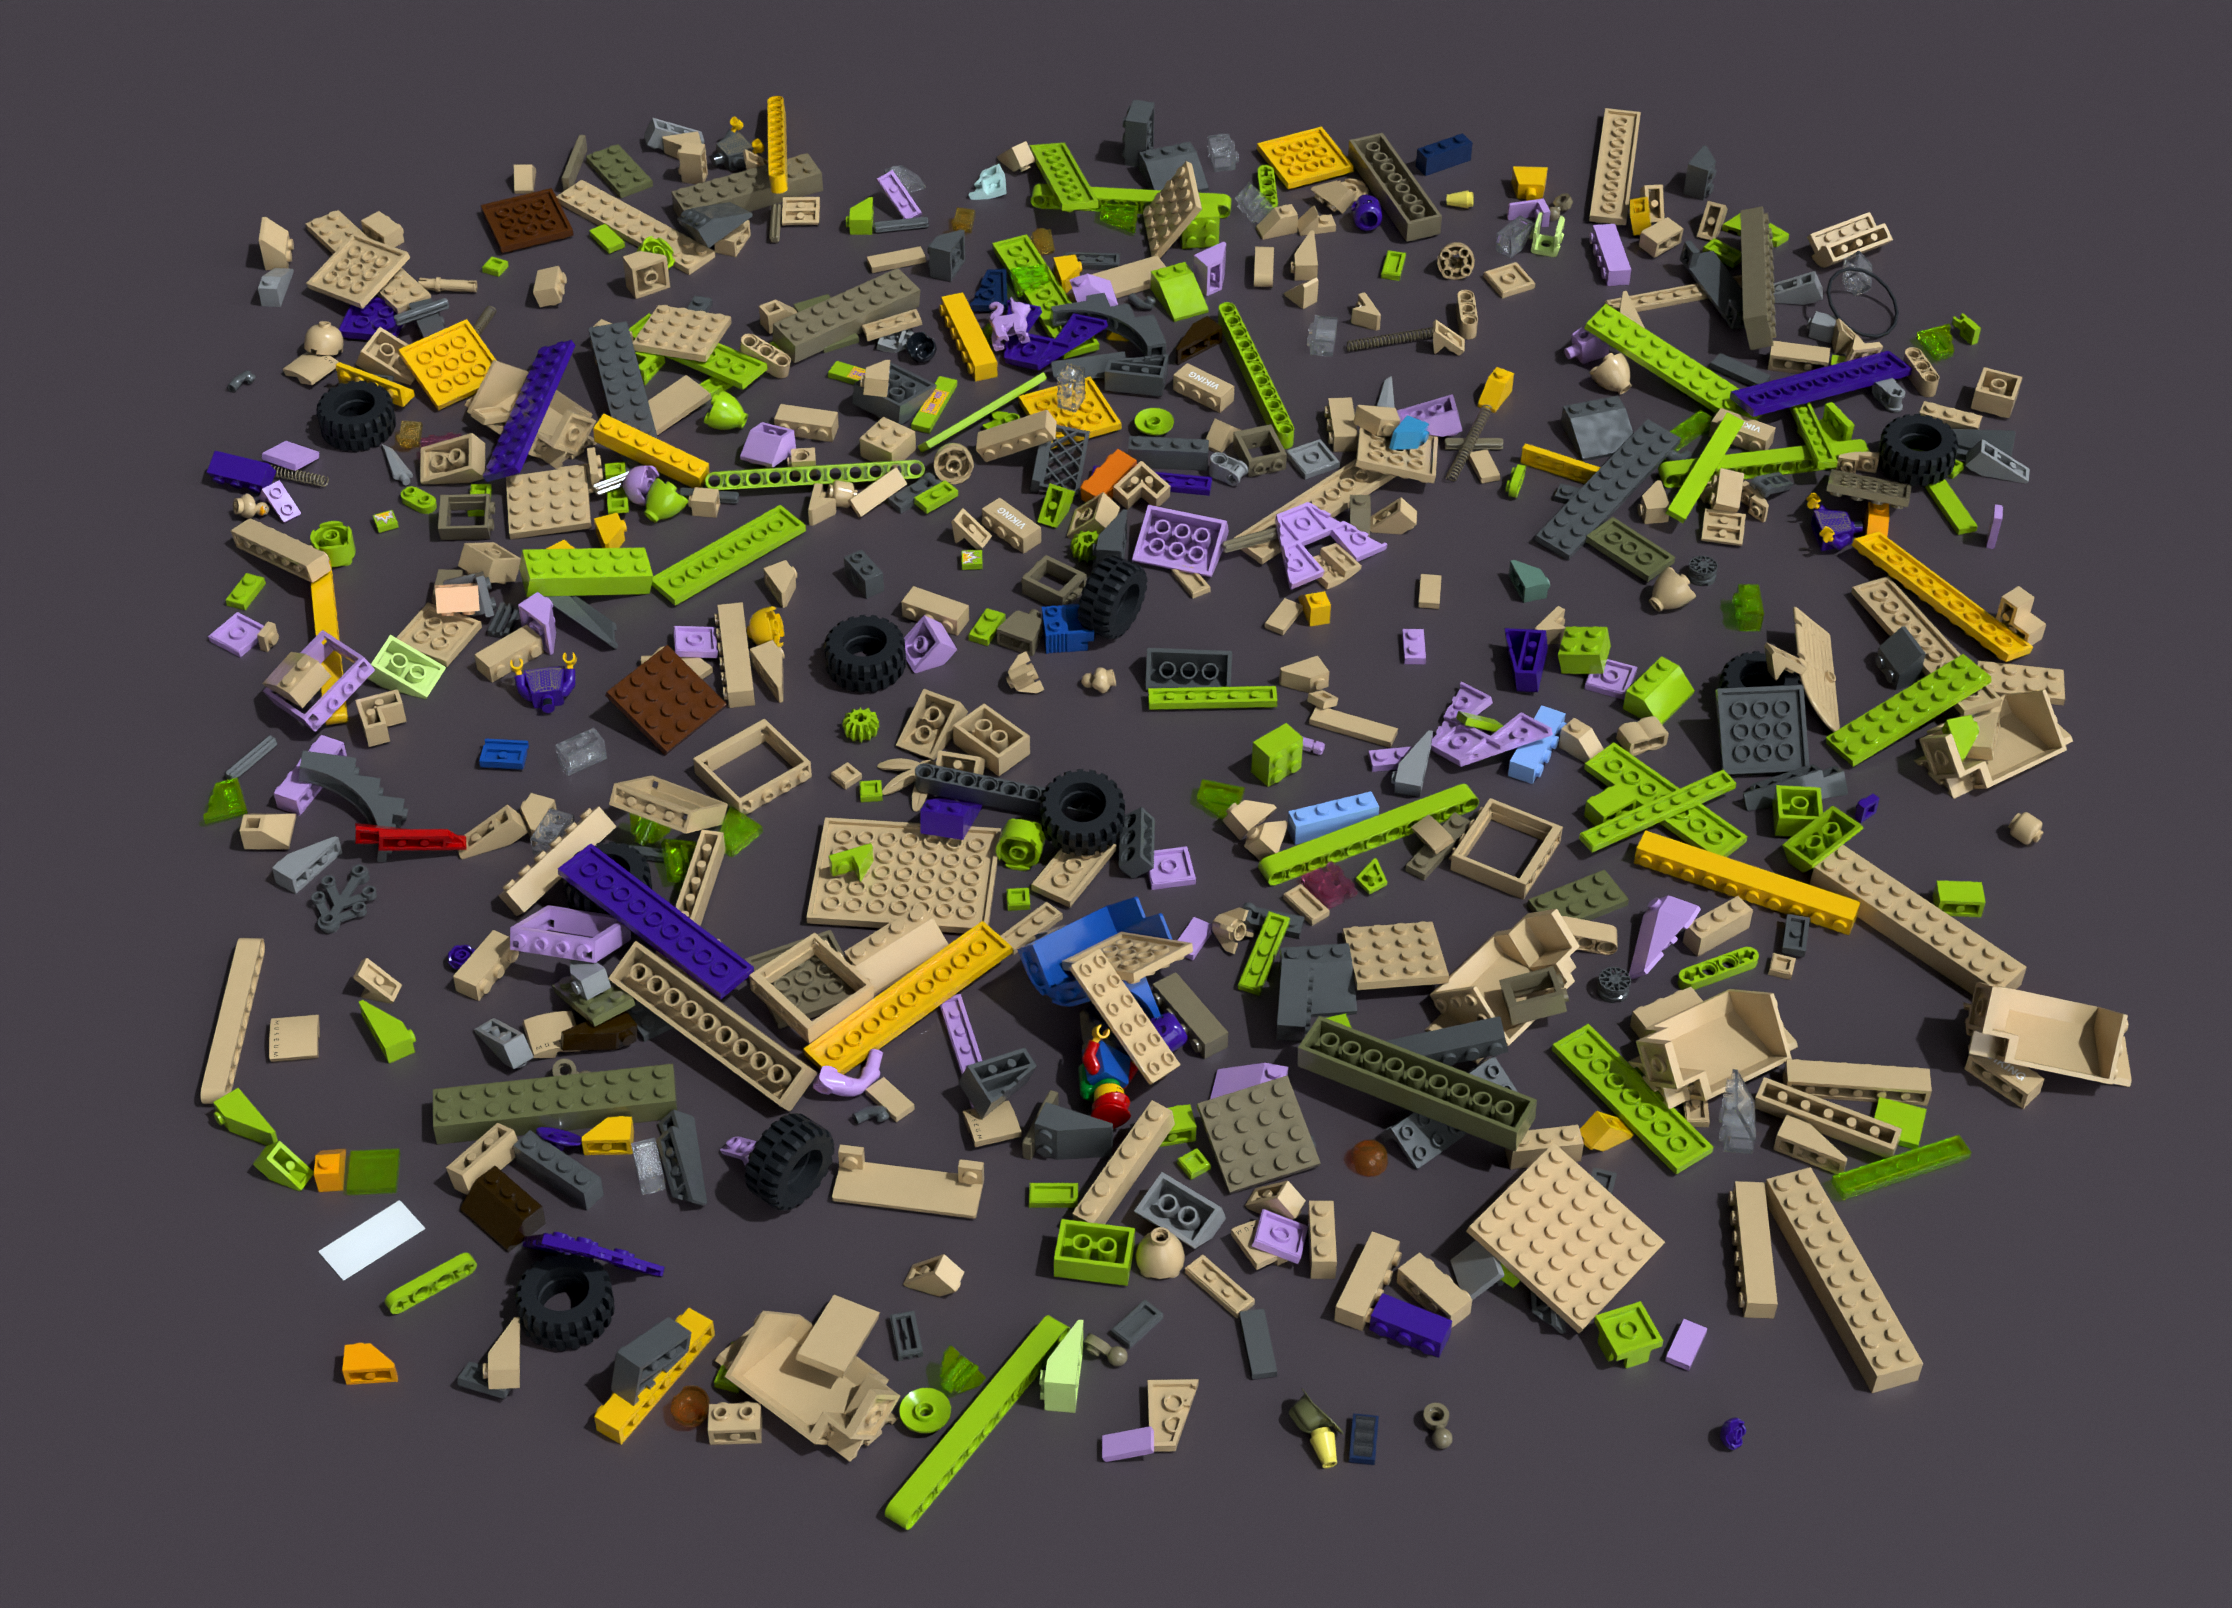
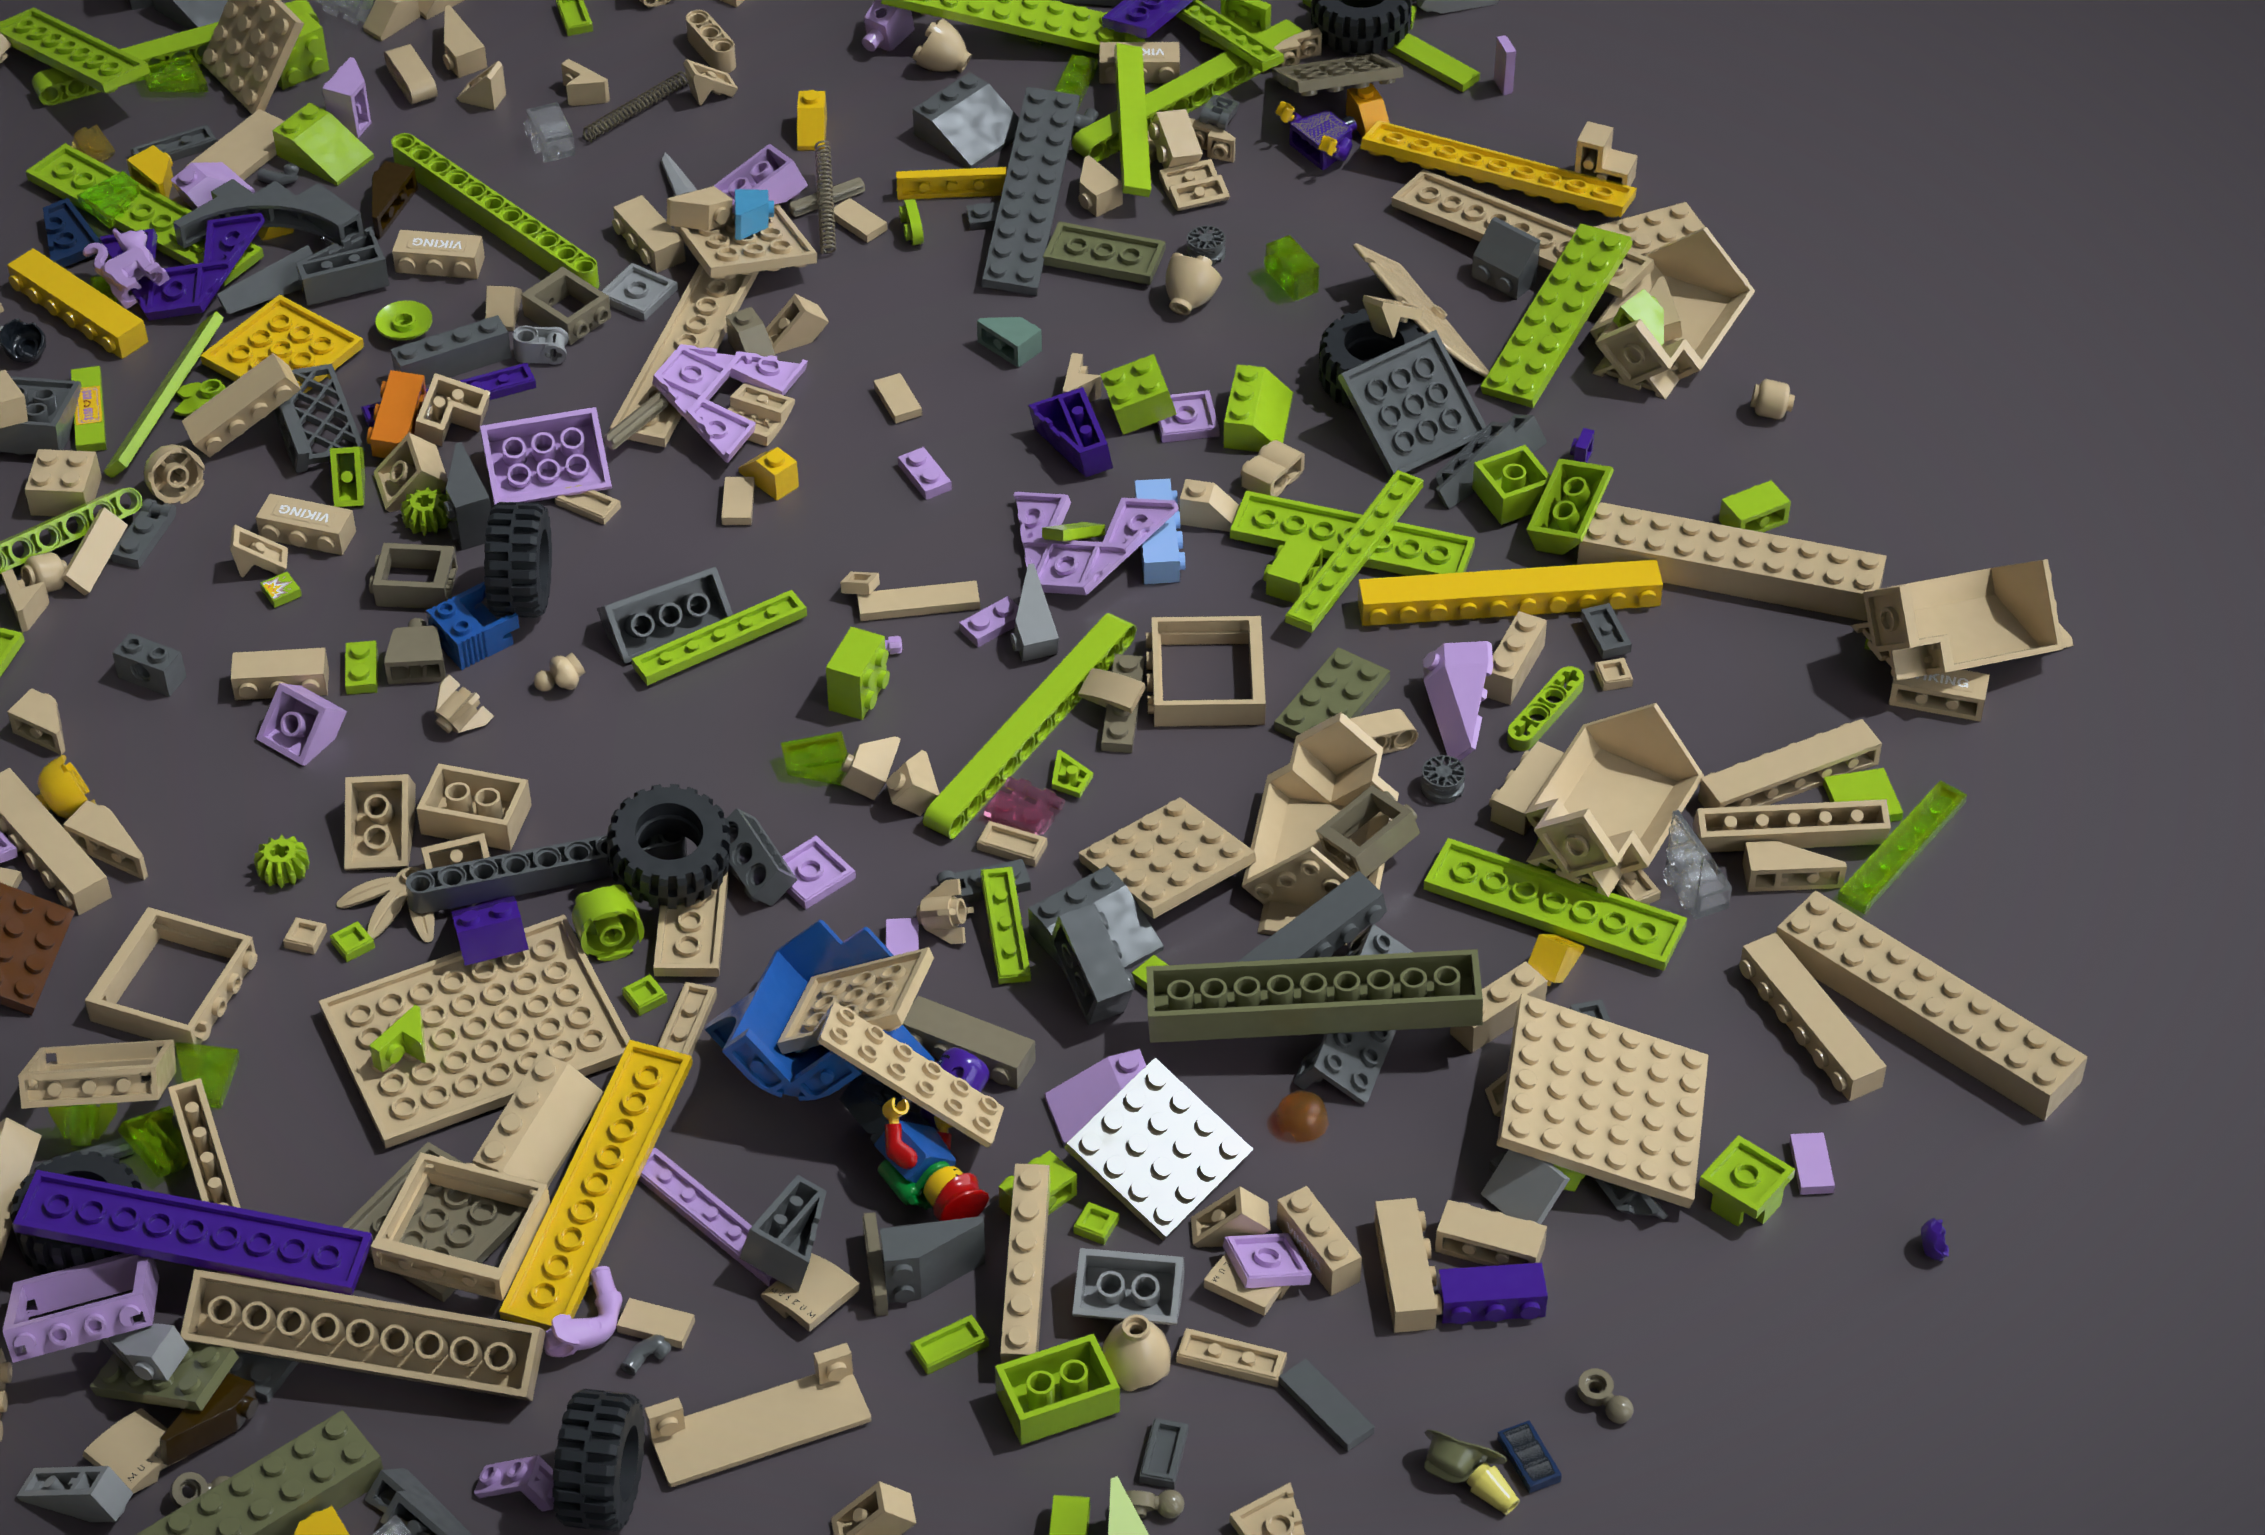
camera: 30 degrees left, 0 degrees up
(865, 672) = (233, 793): black tyre -> none
(936, 496) = (176, 527): lime plate -> none
(1071, 387) = (273, 315): clear brick -> none
(1305, 675) = (819, 562): tan slope -> none
(1327, 817) = (974, 722): light blue brick -> none

